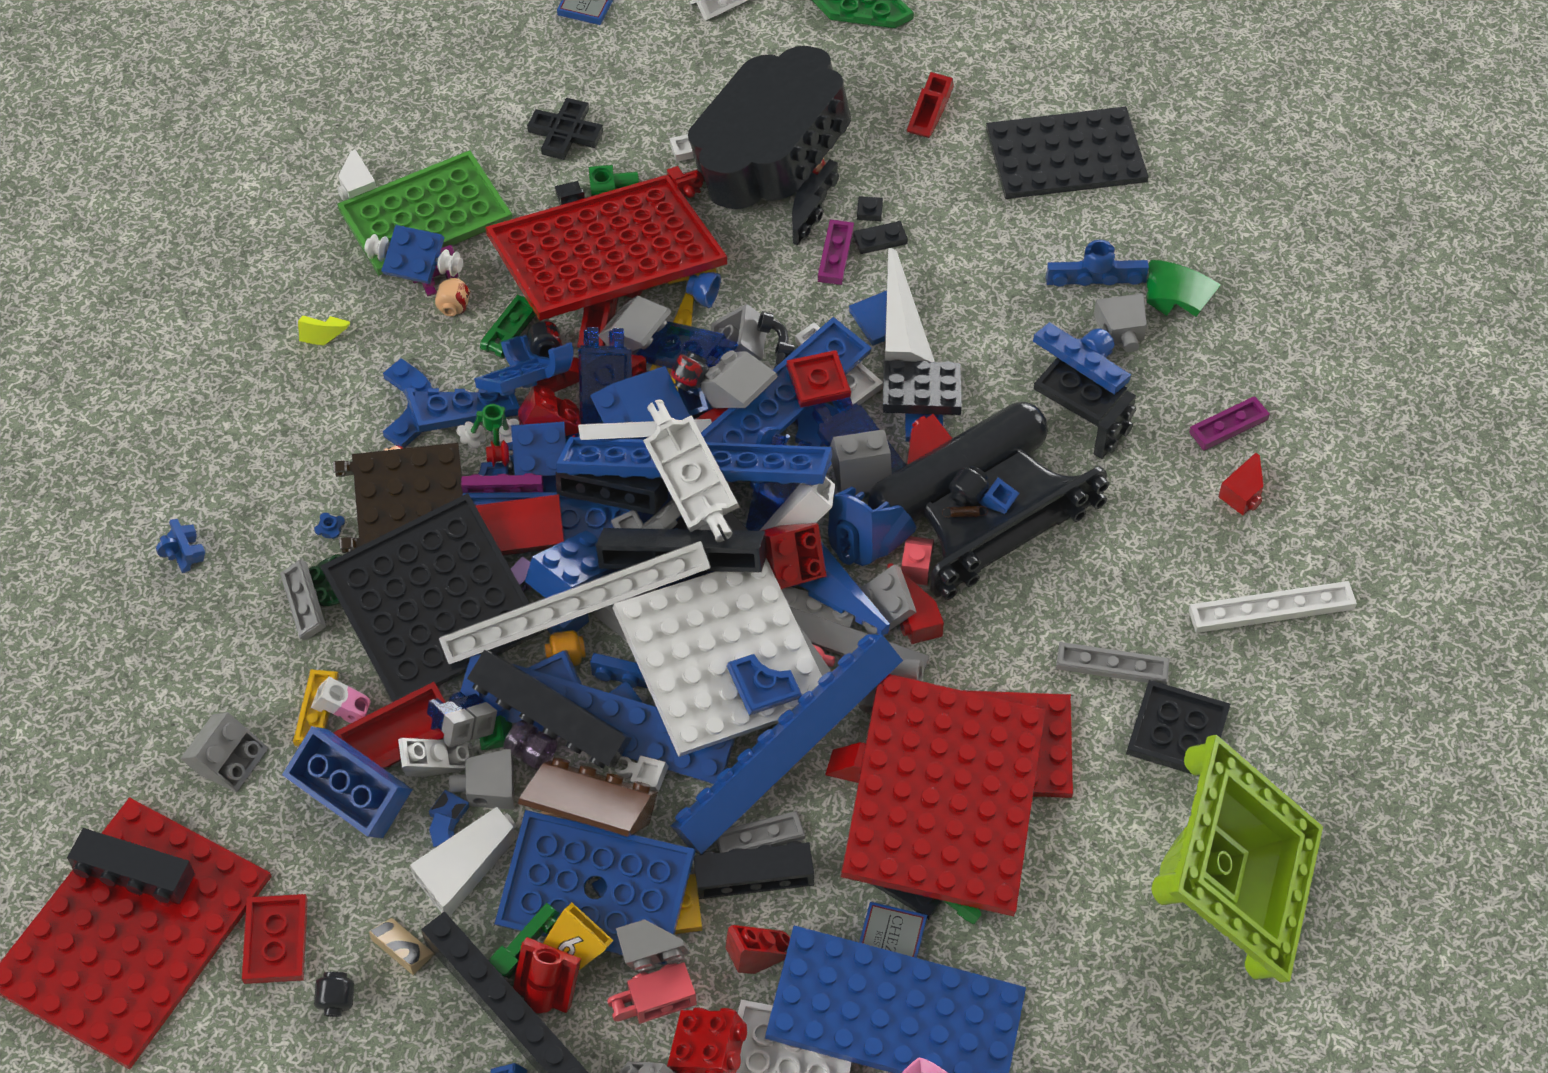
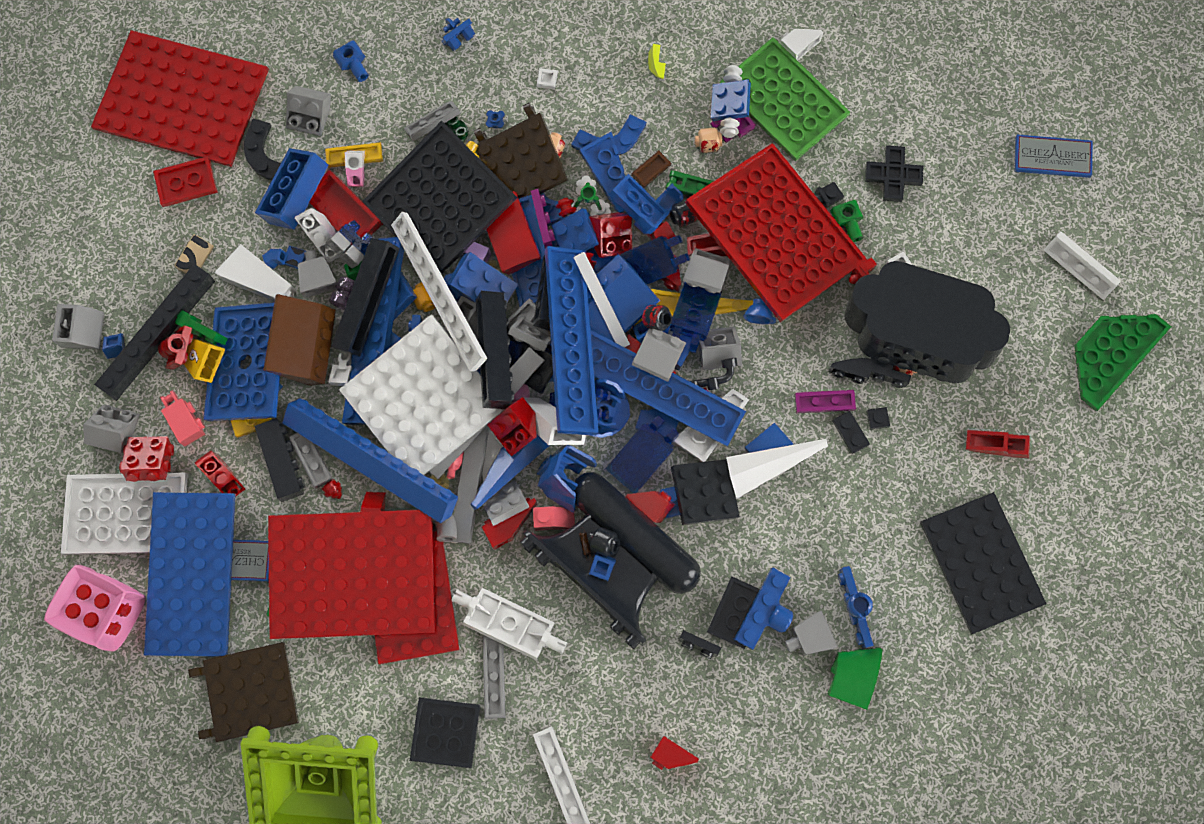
camera: 80 degrees right, 20 degrees up
(130, 866) = (210, 82): black brick -> none
(172, 683) = (352, 63): none -> blue piece
(270, 836) = (254, 149): none -> black plate
(292, 457) = (547, 78): none -> white tile
(334, 993) = (152, 226): black head -> none
(466, 365) = (651, 169): none -> reddish brown tile
(648, 945) = (199, 405): light grey slope -> none
(690, 472) = (544, 337): white plate -> none
(760, 686) = (400, 429): blue tile -> none
(812, 812) = (332, 489): none -> red plate
(818, 378) = (681, 412): red tile -> none
(860, 460) = (619, 460): light grey slope -> none
(1048, 627) = (508, 623): none -> white plate
(1082, 967) = (248, 692): none -> dark brown plate
(1229, 423) = (732, 735): magenta plate -> none

